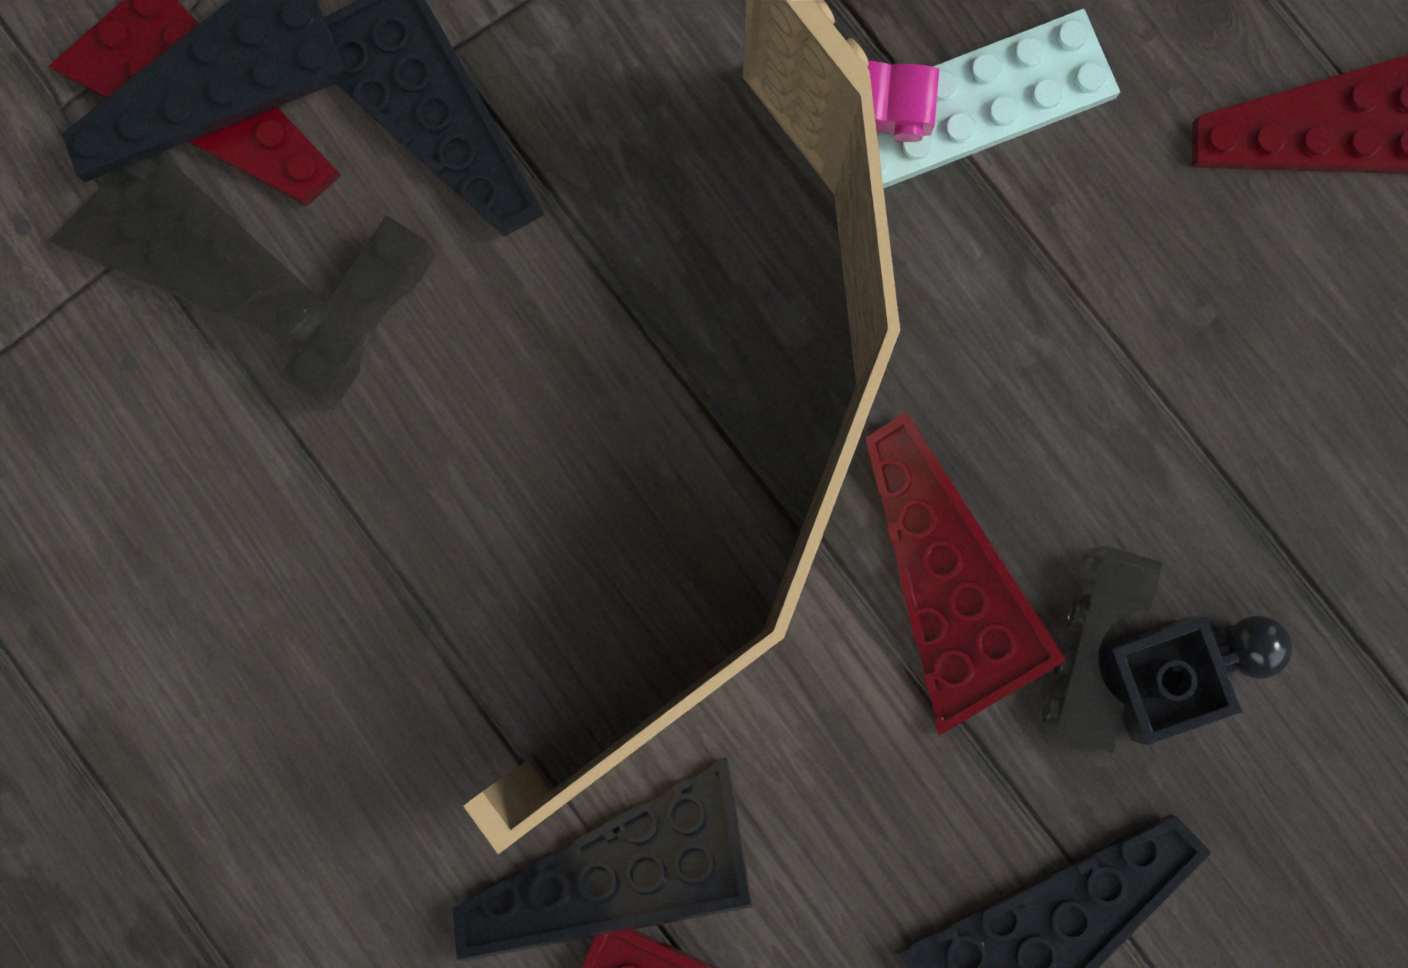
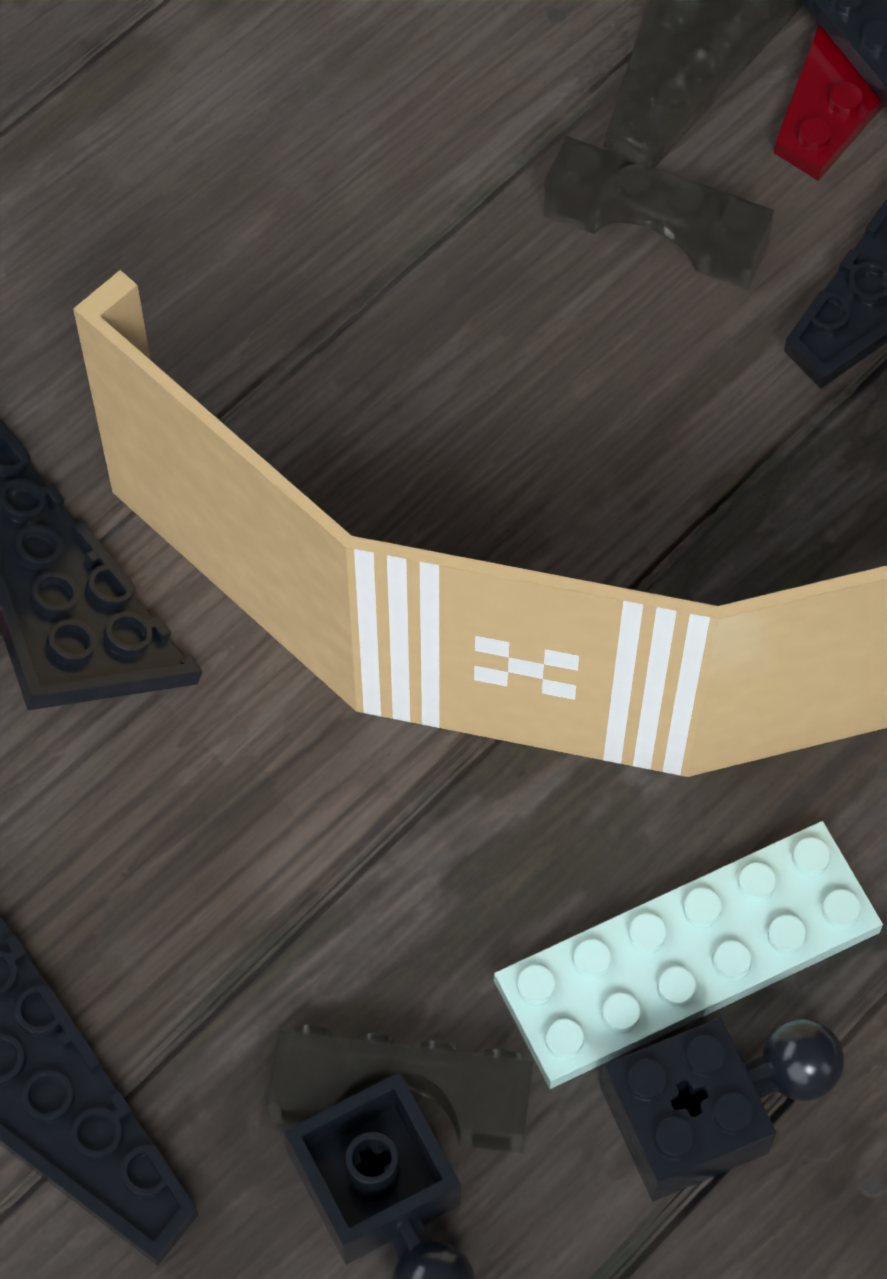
camera: 75 degrees right, 20 degrees down
(963, 603) = (447, 904): dark red wing -> none
(1014, 414) = (686, 954): none -> light aqua plate
(1165, 409) = (705, 1069): none -> black brick

